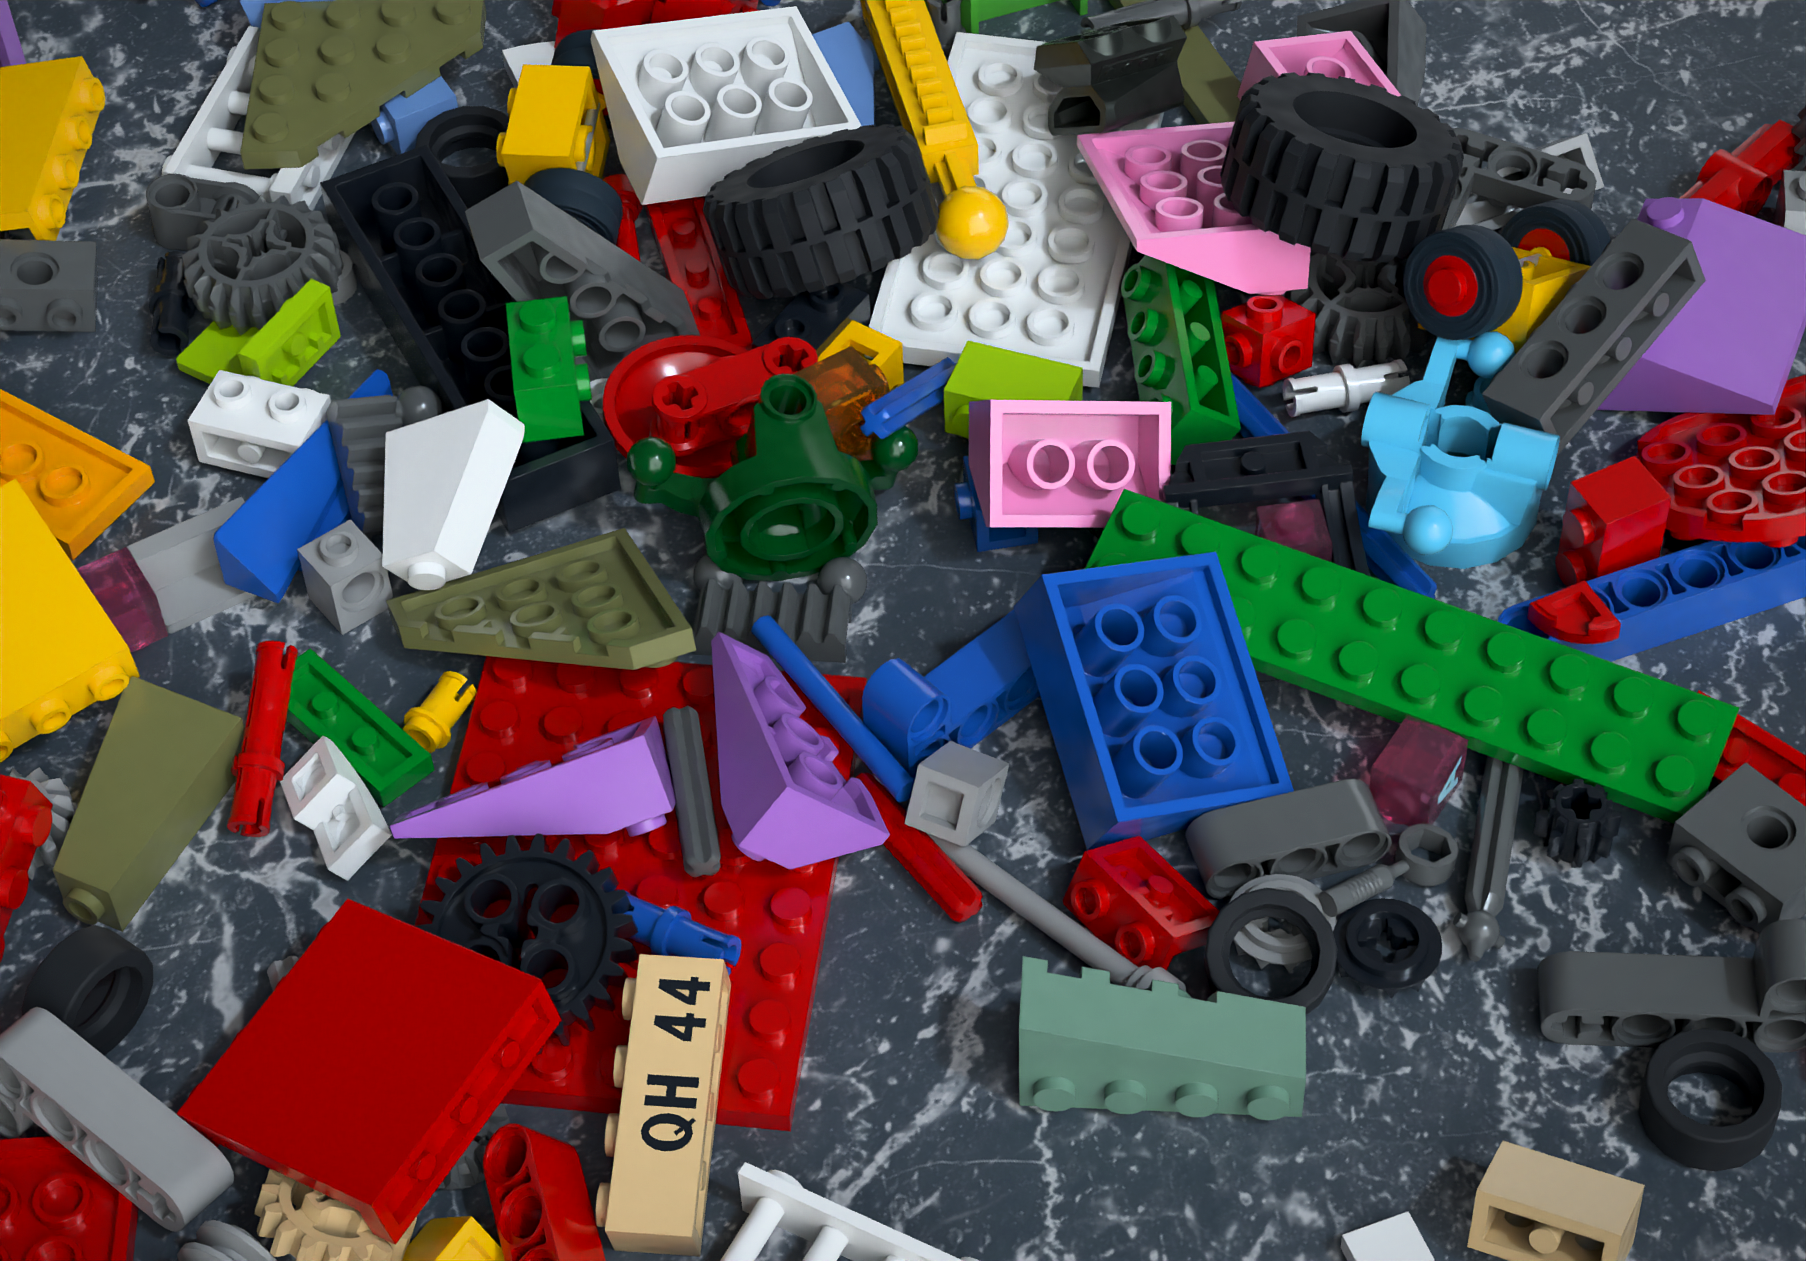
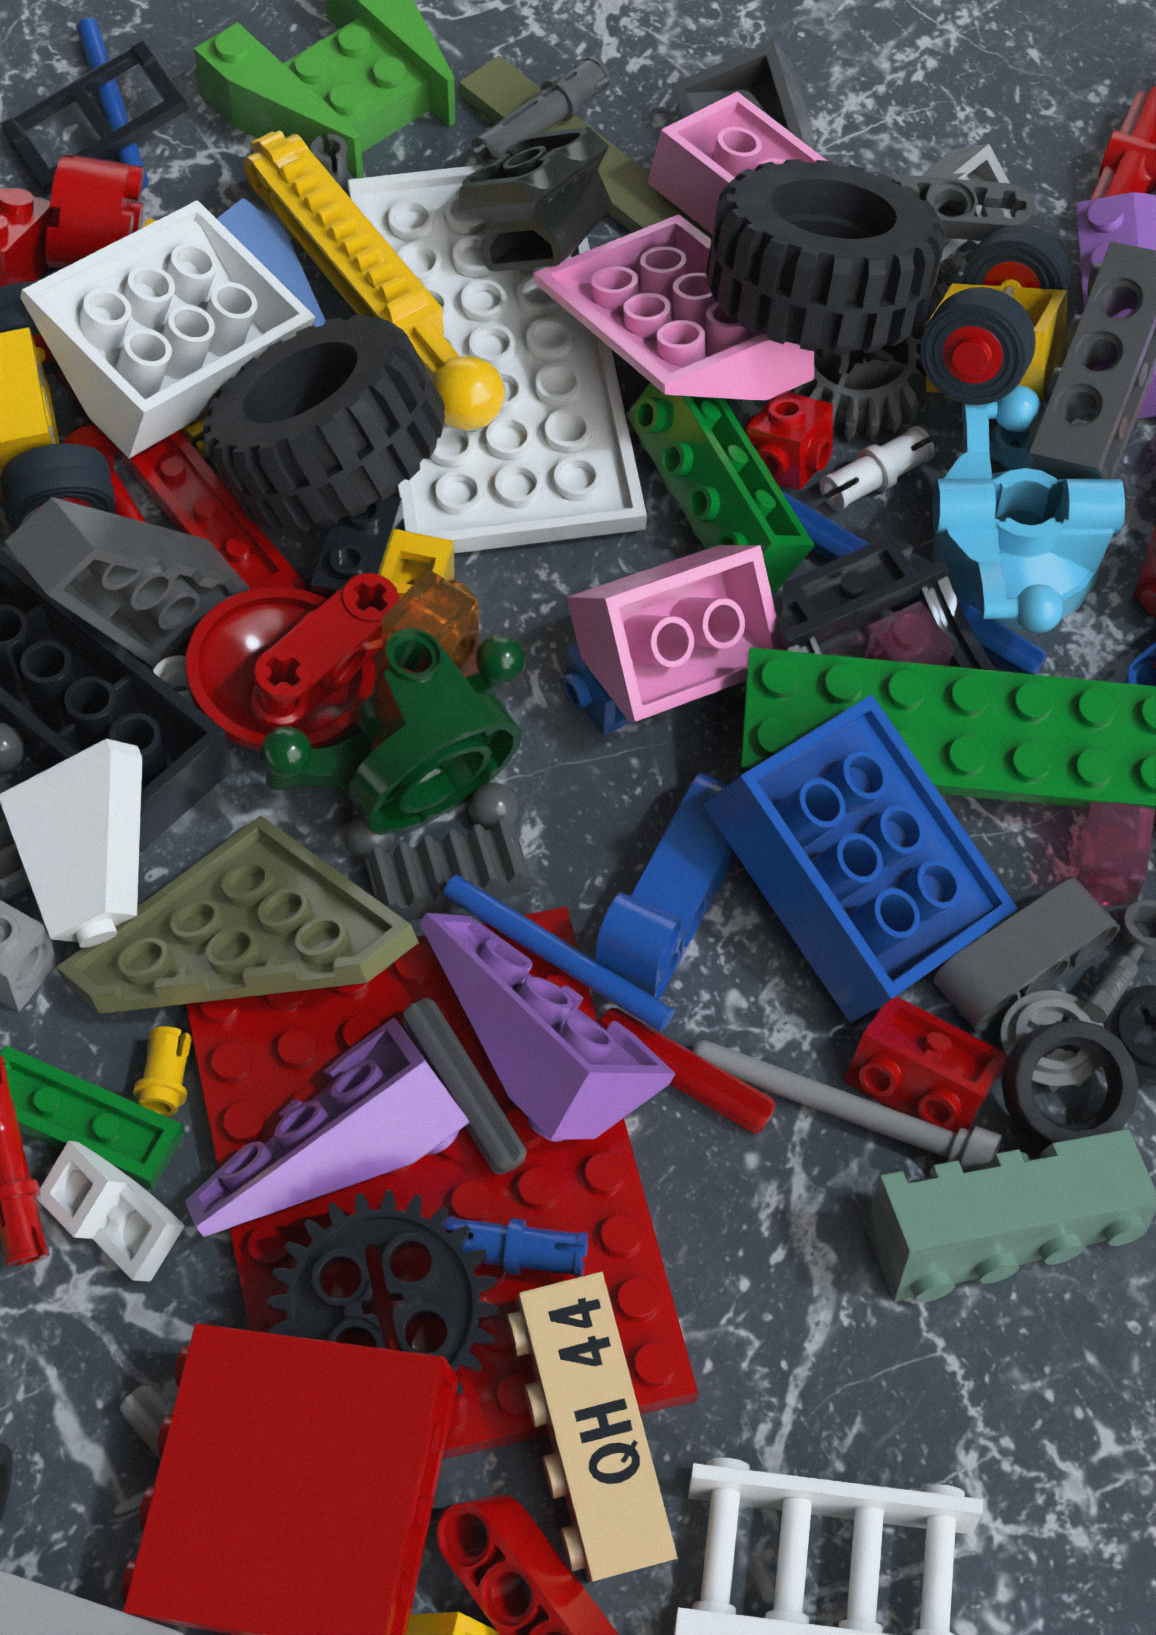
camera: 25 degrees left, 10 degrees up
(545, 369) = (134, 678): green brick -> none
(907, 401) = (498, 601): blue axle -> none
(956, 793) = (713, 1007): light grey brick -> none
(1003, 374) = (571, 559): lime brick -> none

